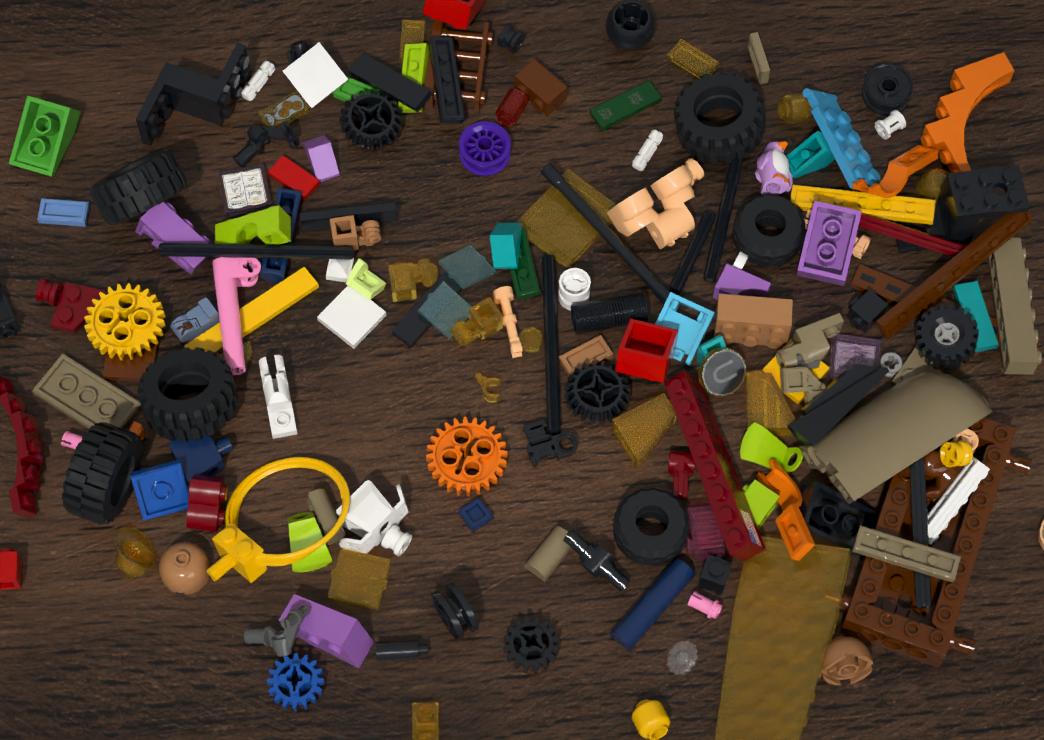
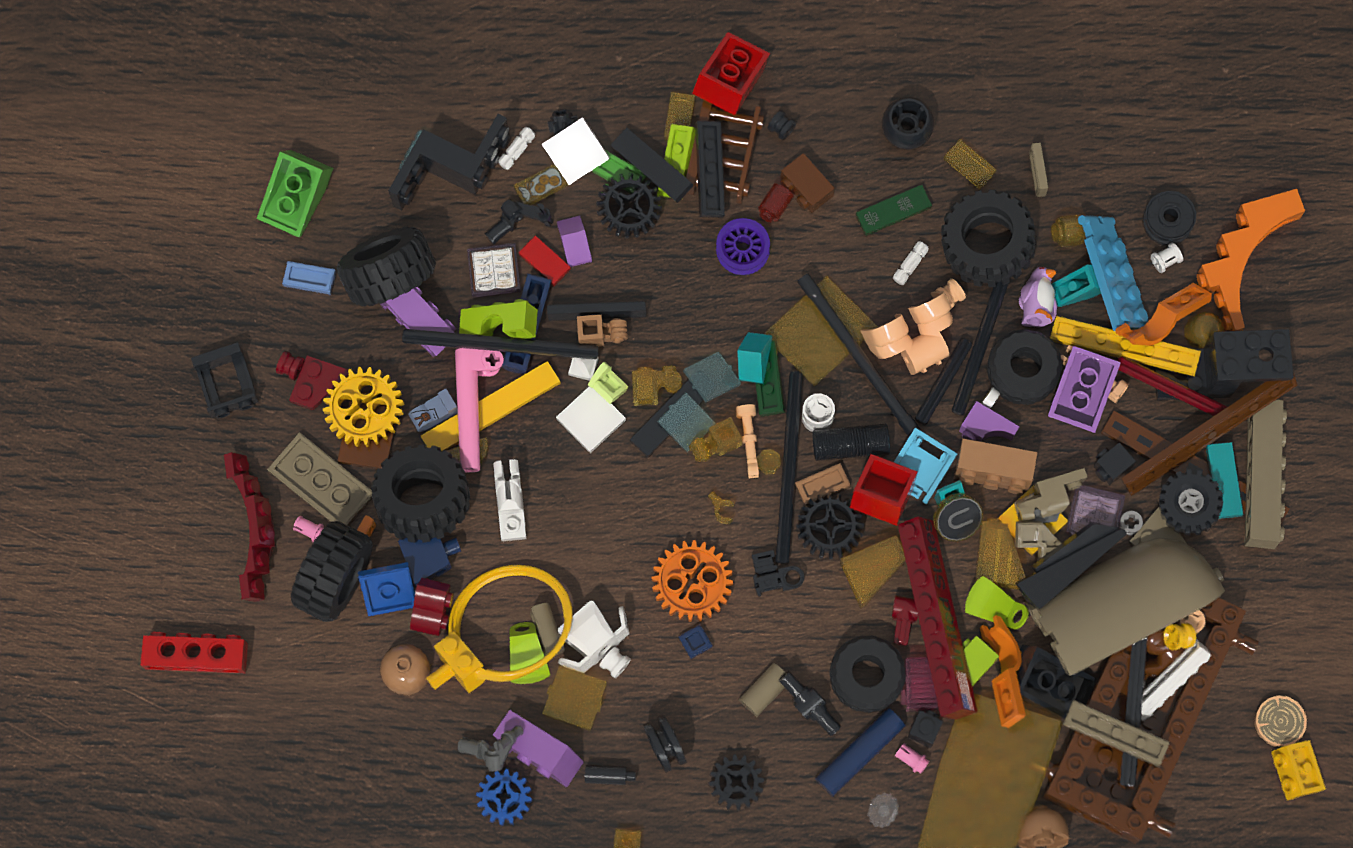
camera: 10 degrees right, 10 degrees up
(134, 553) = (357, 650): clear yellow piece -> none

